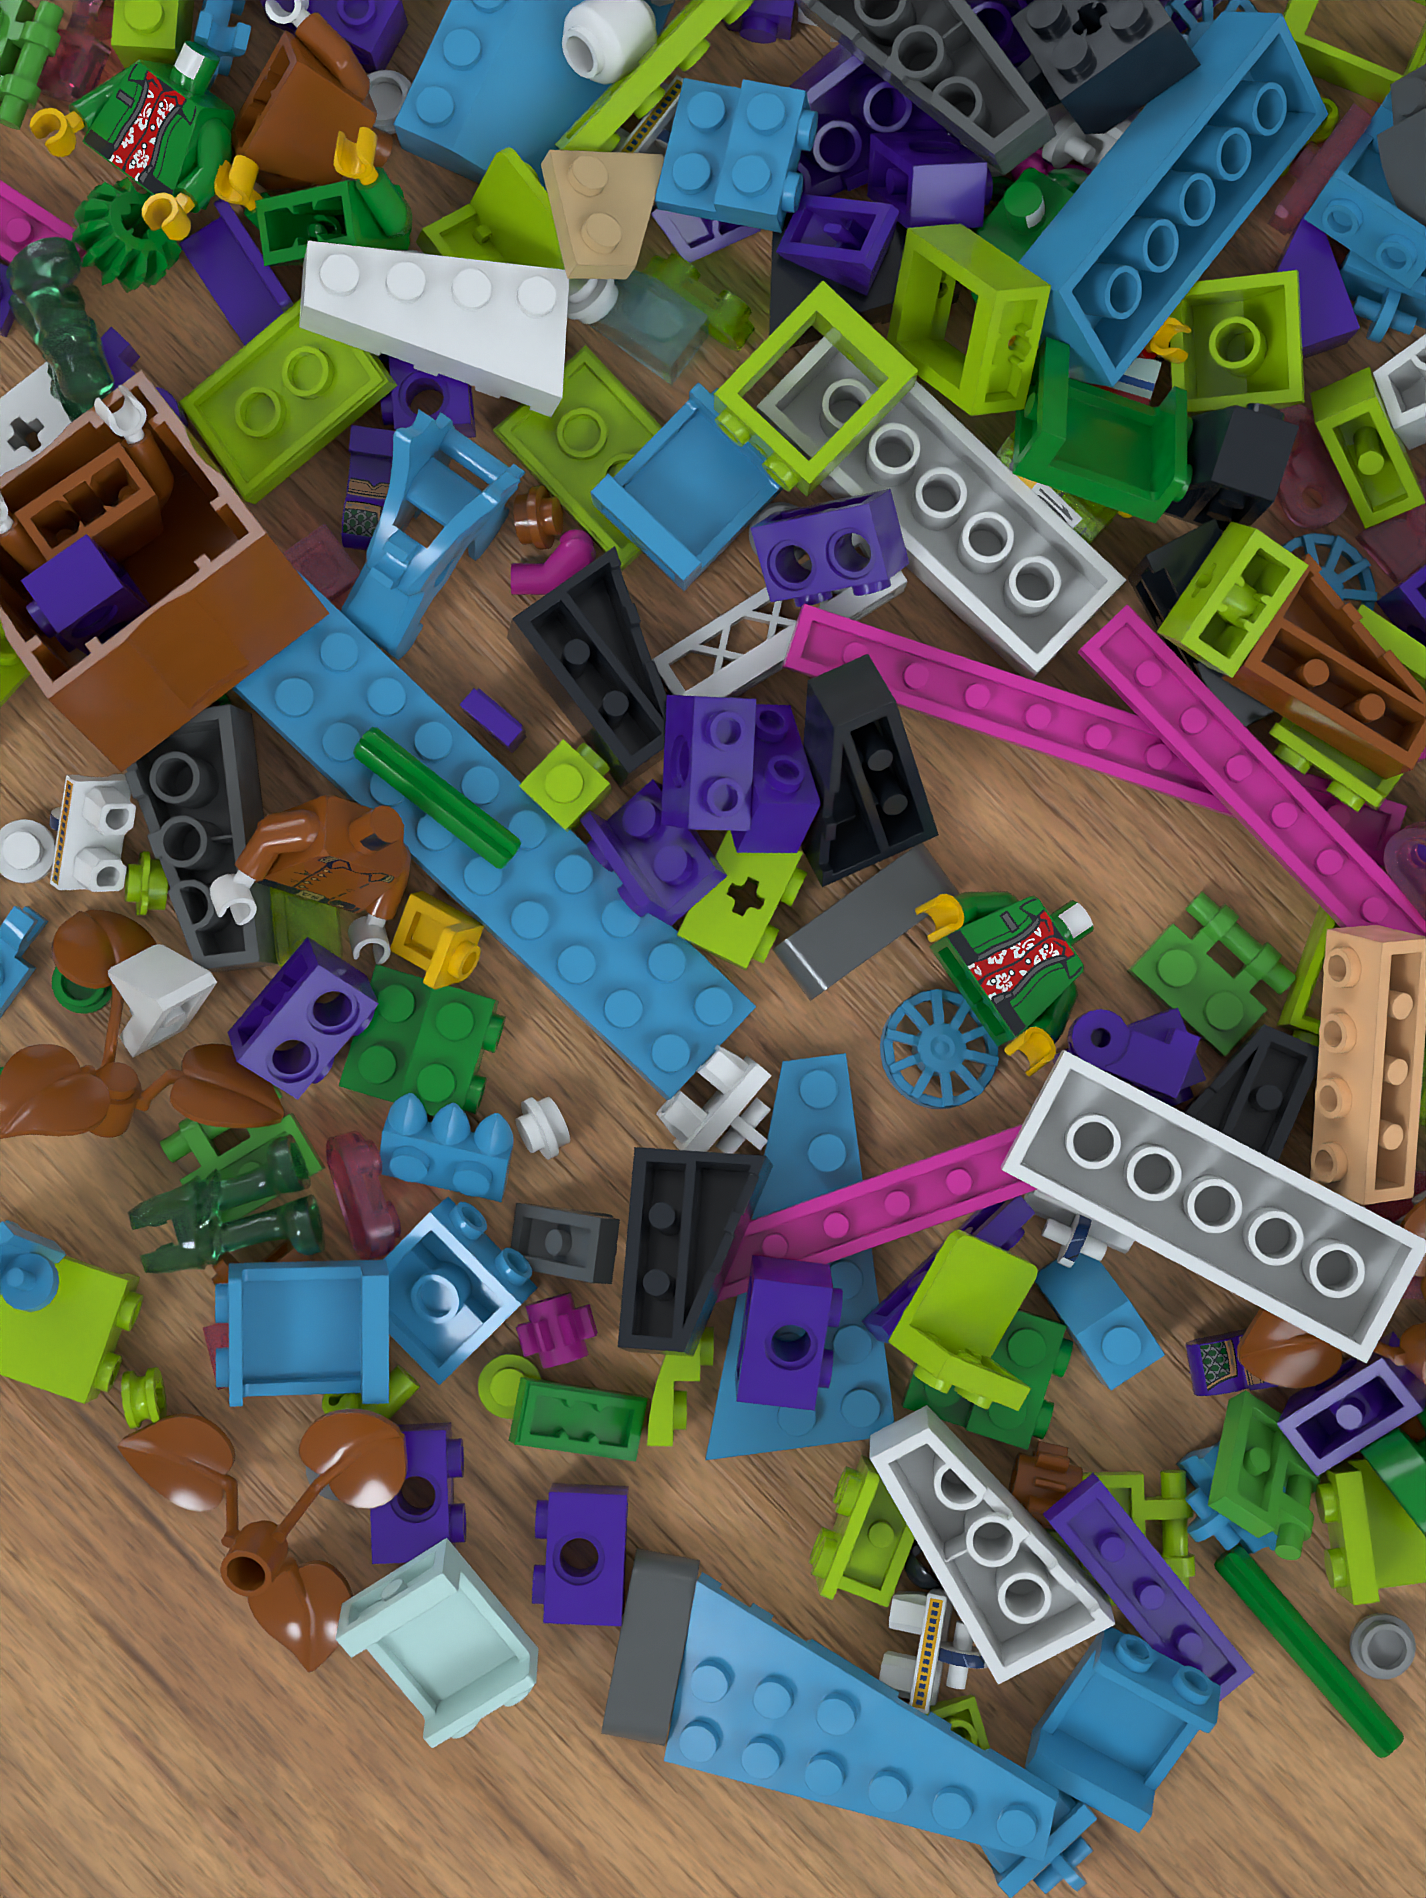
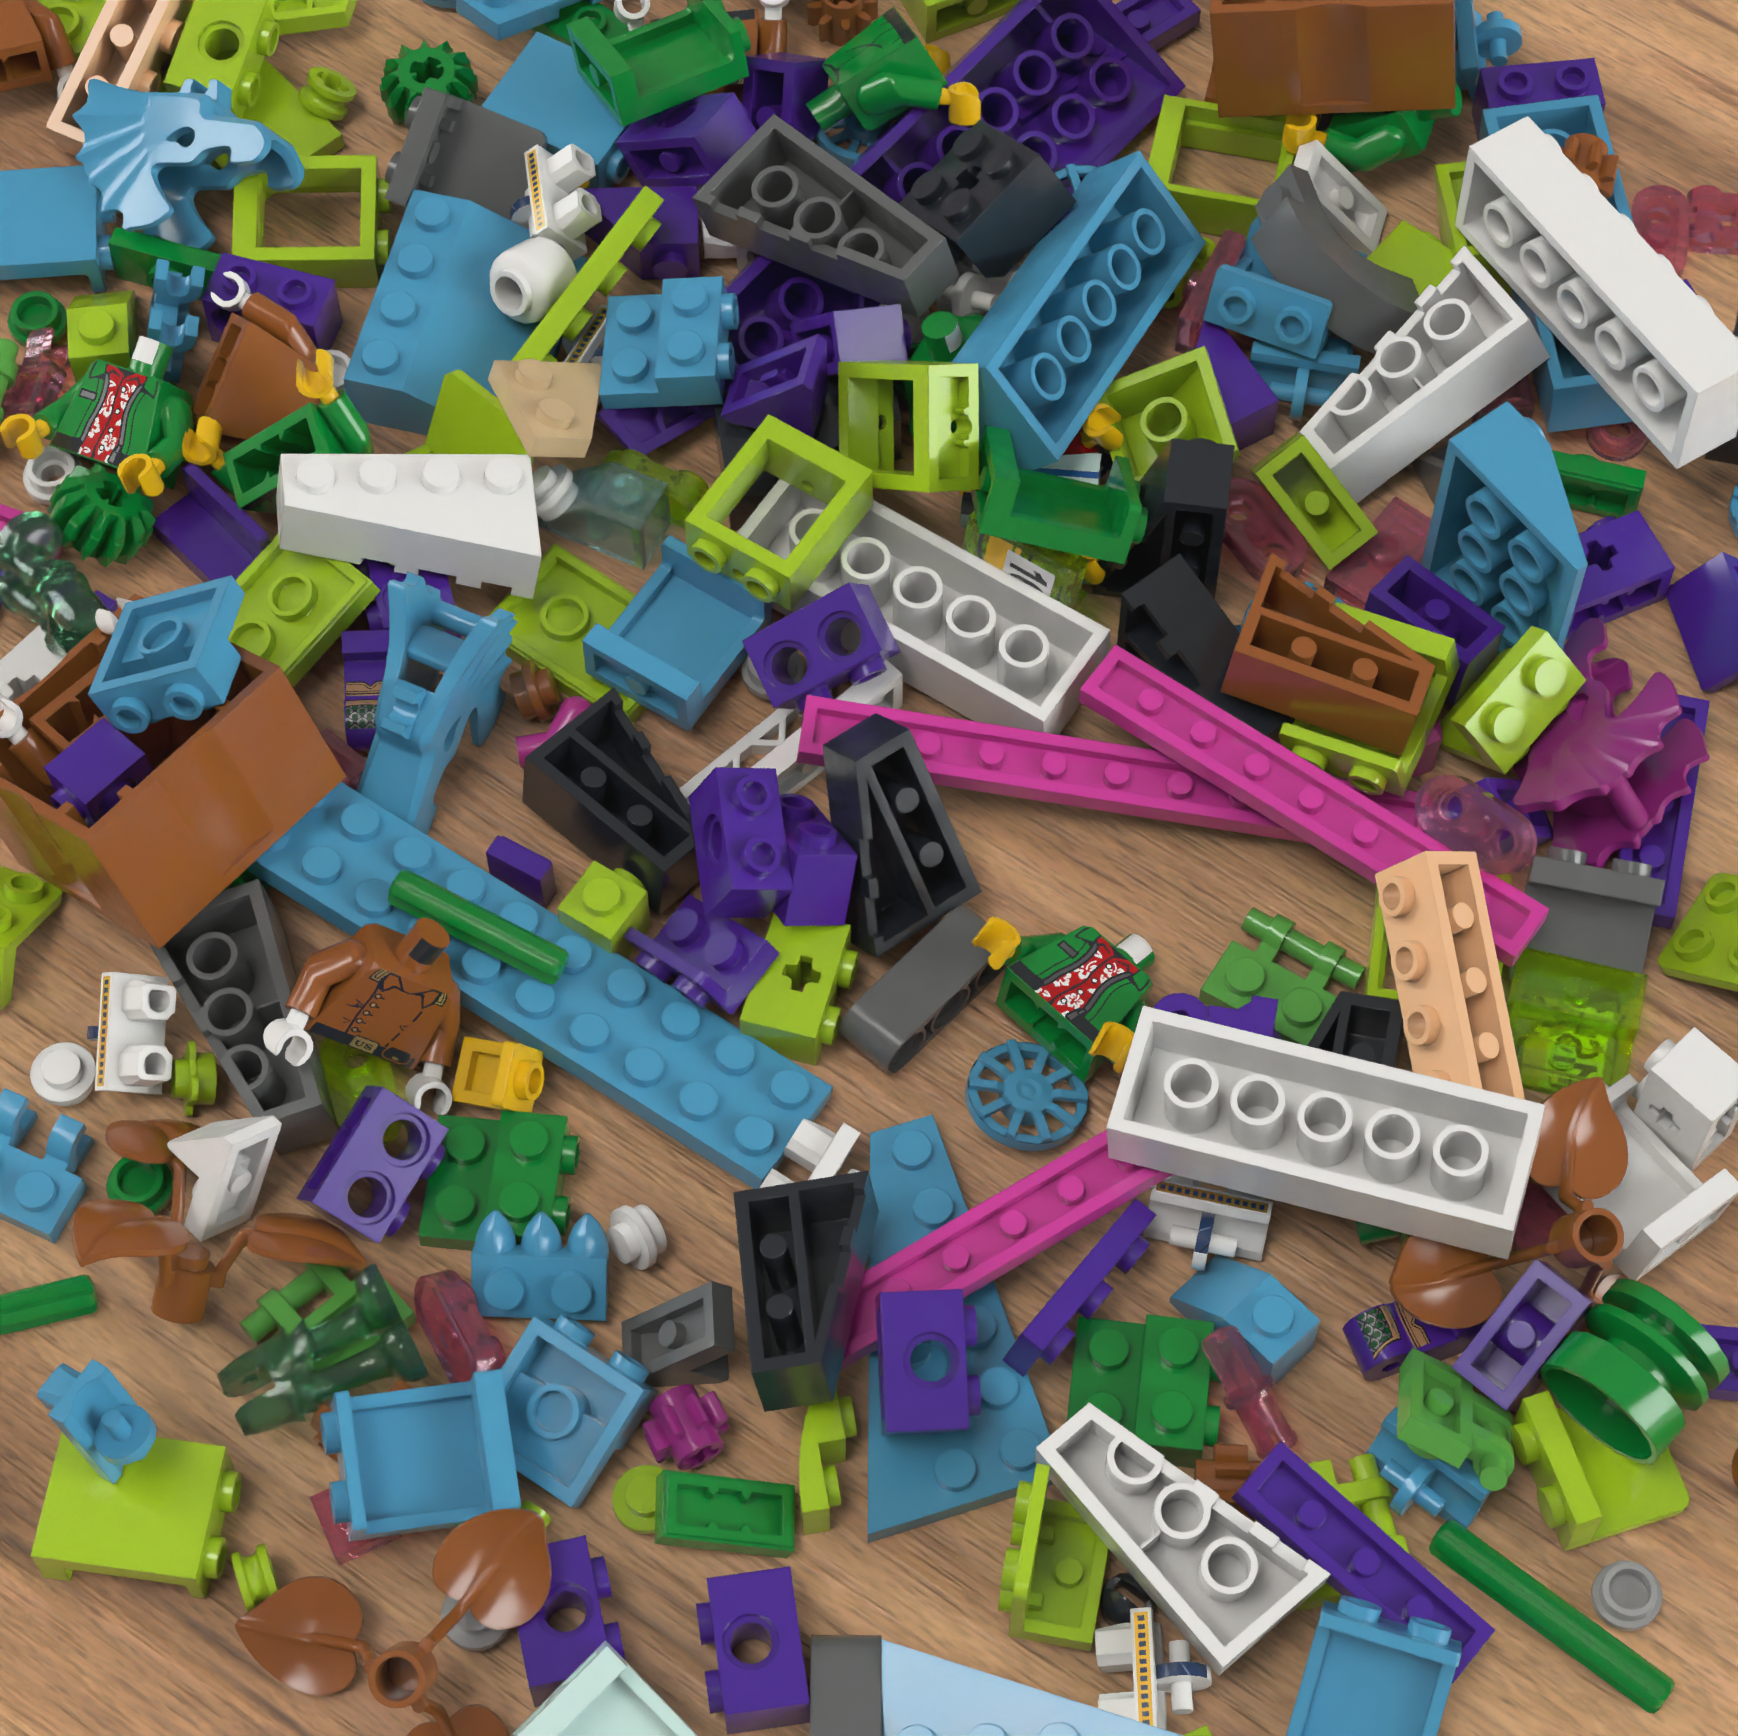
camera: 10 degrees left, 25 degrees down
(67, 169) = (49, 464): none -> white plate
(158, 488) = (169, 656): none -> dark azure plate
(962, 1318) = (1106, 1307): lime bracket -> none
(1083, 1401) = (1247, 1389): none -> clear pink axle
(1232, 598) = (1210, 606): lime brick -> none

